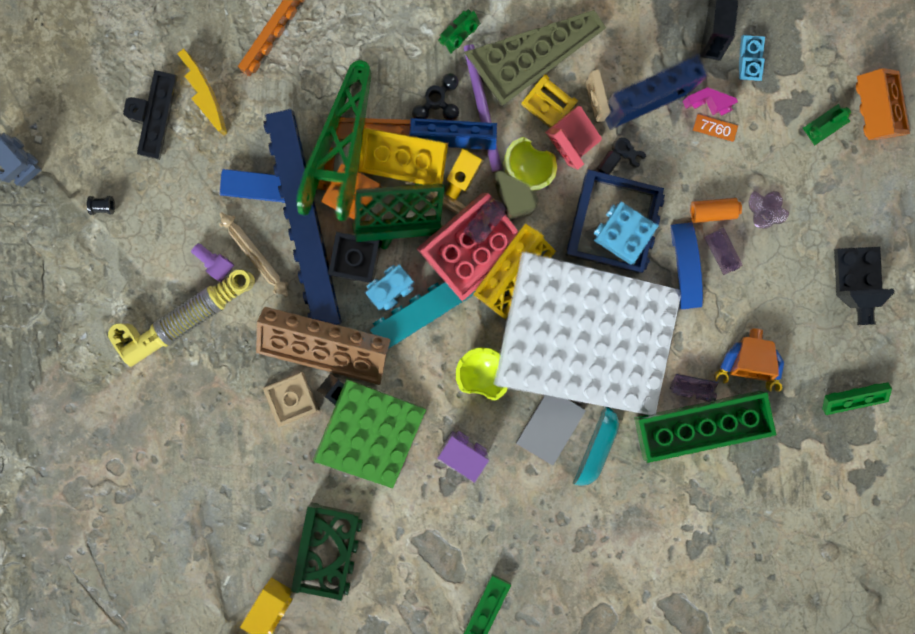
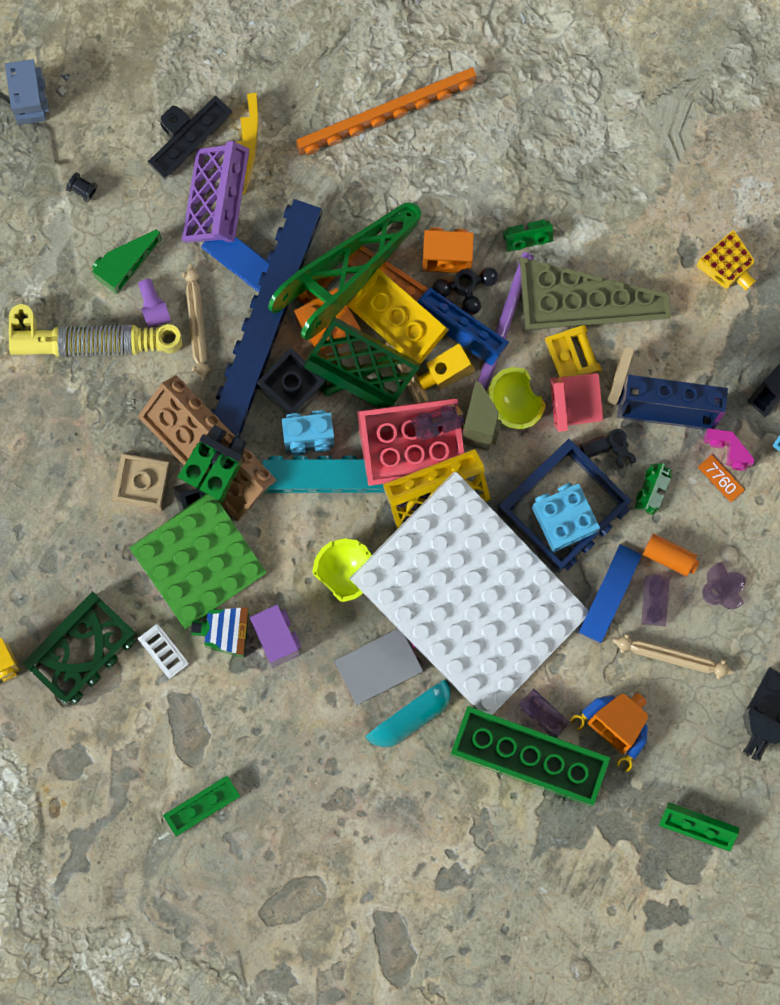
camera: 25 degrees right, 10 degrees down
(169, 243) = (122, 262): none -> green slope
(212, 144) = (228, 193): none -> medium lavender fence
(336, 361) = (213, 464): none -> green hips
(385, 521) = (156, 656): none -> white slope
(407, 81) = (447, 250): none -> orange brick
(422, 472) = (224, 630): none -> torso
(668, 158) = (655, 478): none -> green hinge
(761, 284) = (673, 656): none -> tan wheel

